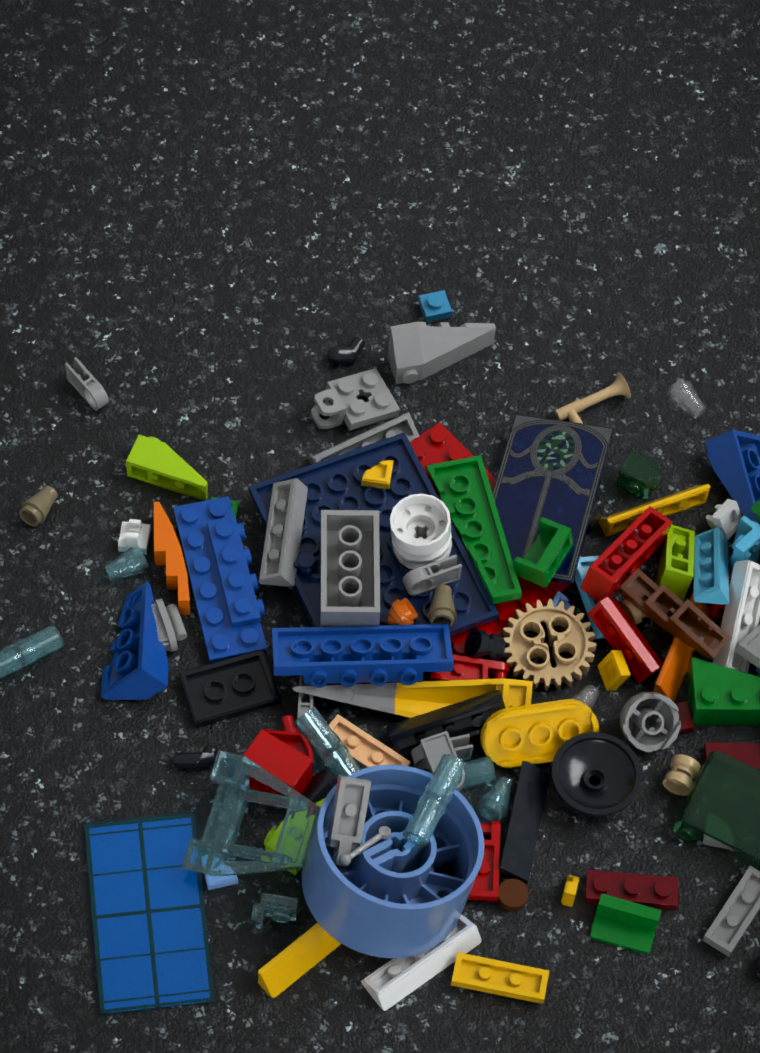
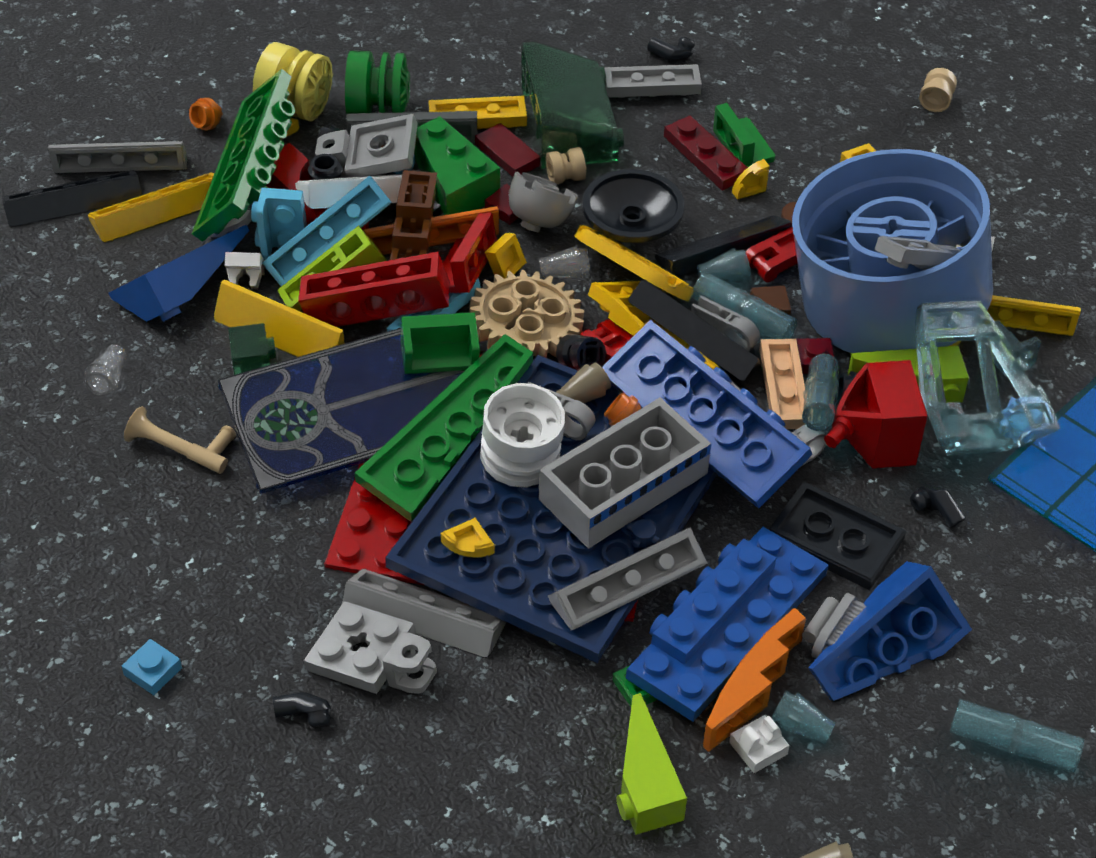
camera: 125 degrees left, 10 degrees down
(383, 833) = (957, 235): light grey hinge -> none
(423, 350) = (240, 617): light grey wedge -> none
(433, 750) = (743, 303): light grey piece -> none
(434, 800) = (828, 213): clear light blue axle -> none

